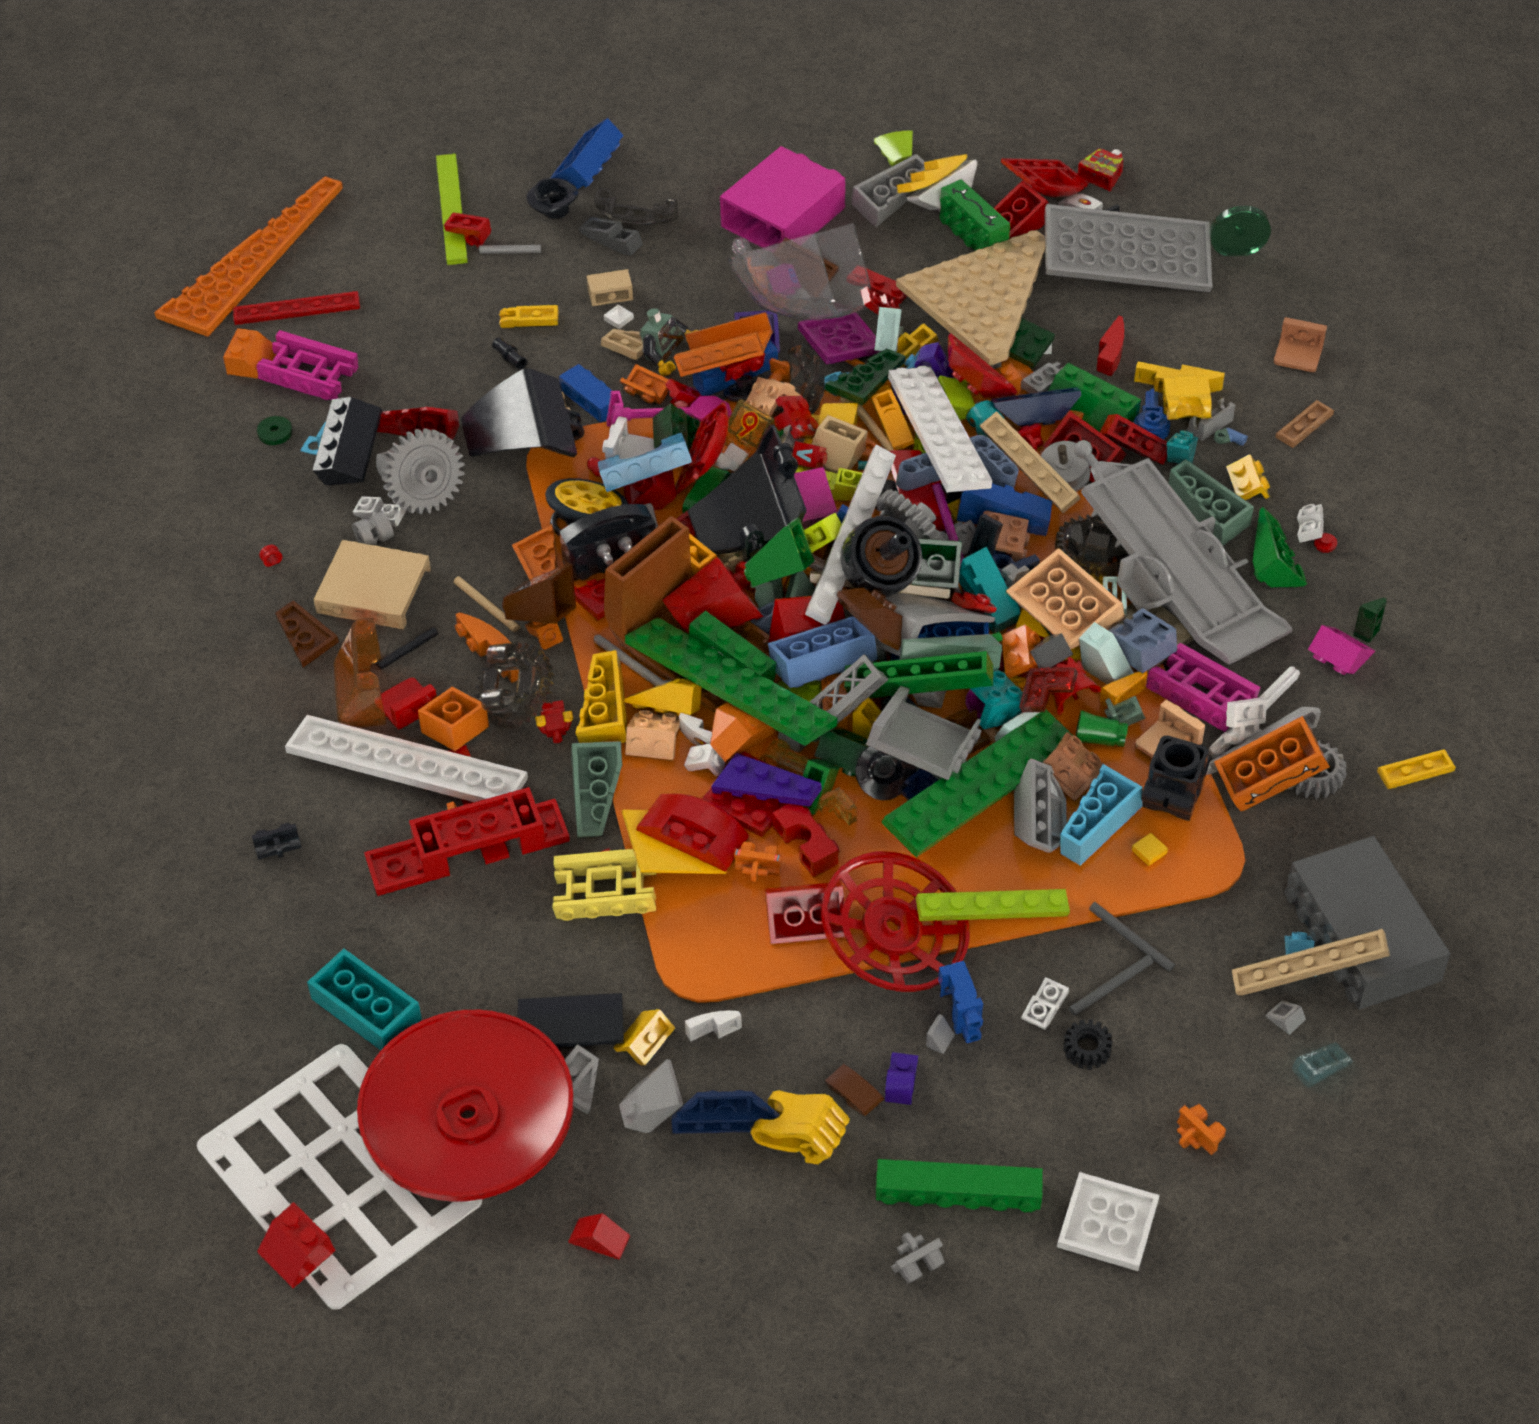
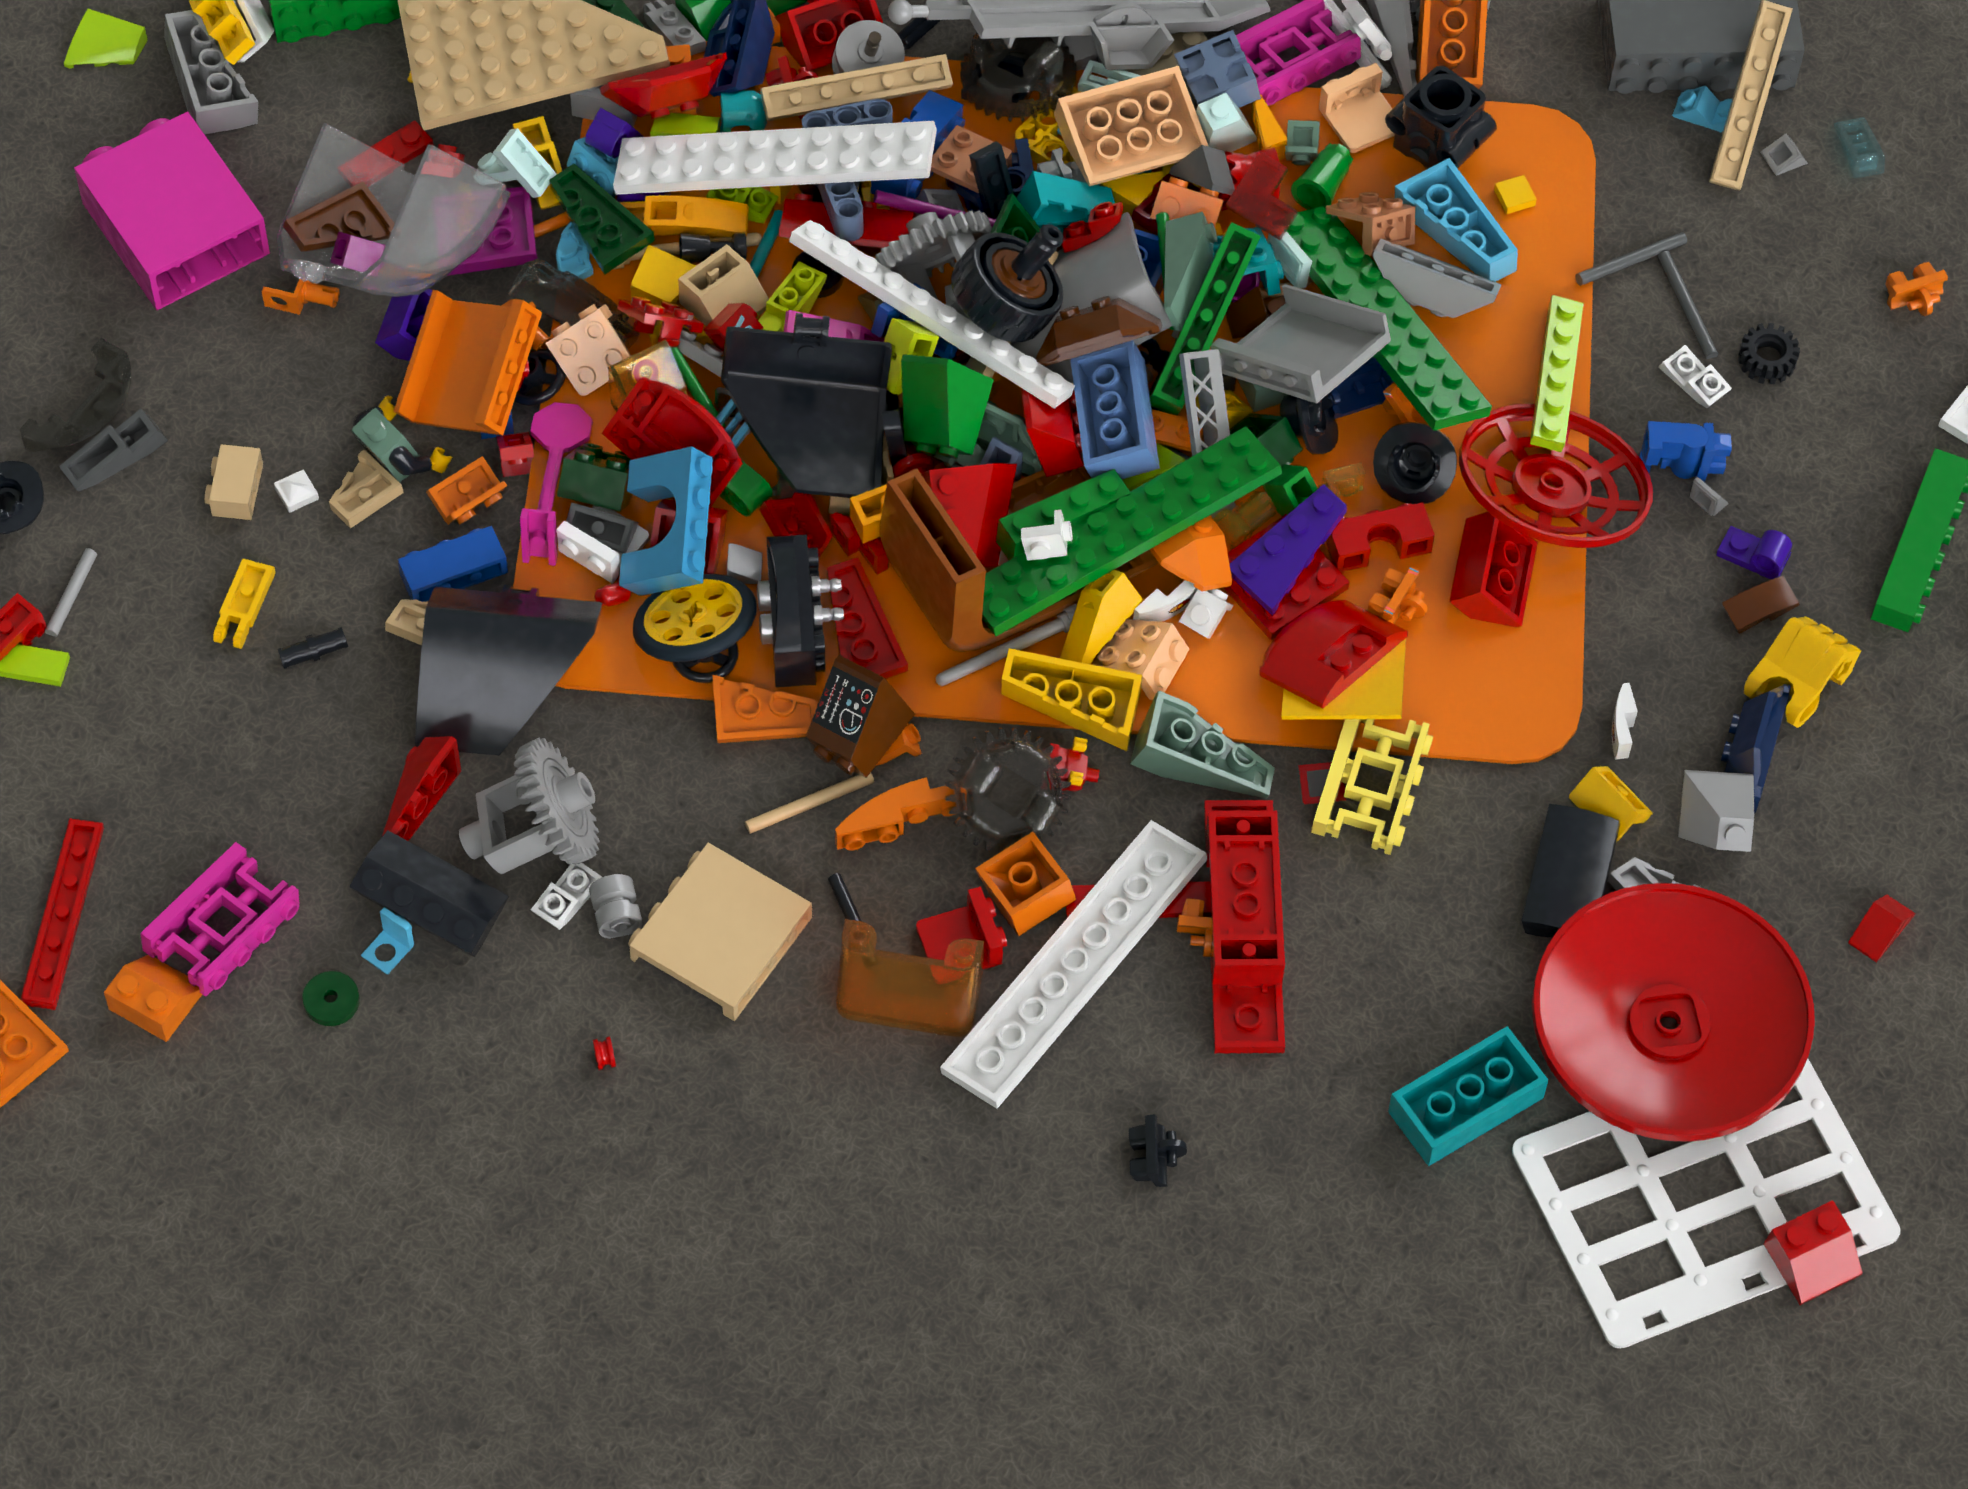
camera: 75 degrees left, 10 degrees up
(305, 633) = (776, 1040): reddish brown wing -> none
(640, 440) = (605, 527): none -> dark grey slope
(698, 639) = (1047, 540): none -> white bracket
(868, 422) = (698, 247): none -> black piece
(870, 834) = (1415, 463): none -> black hat

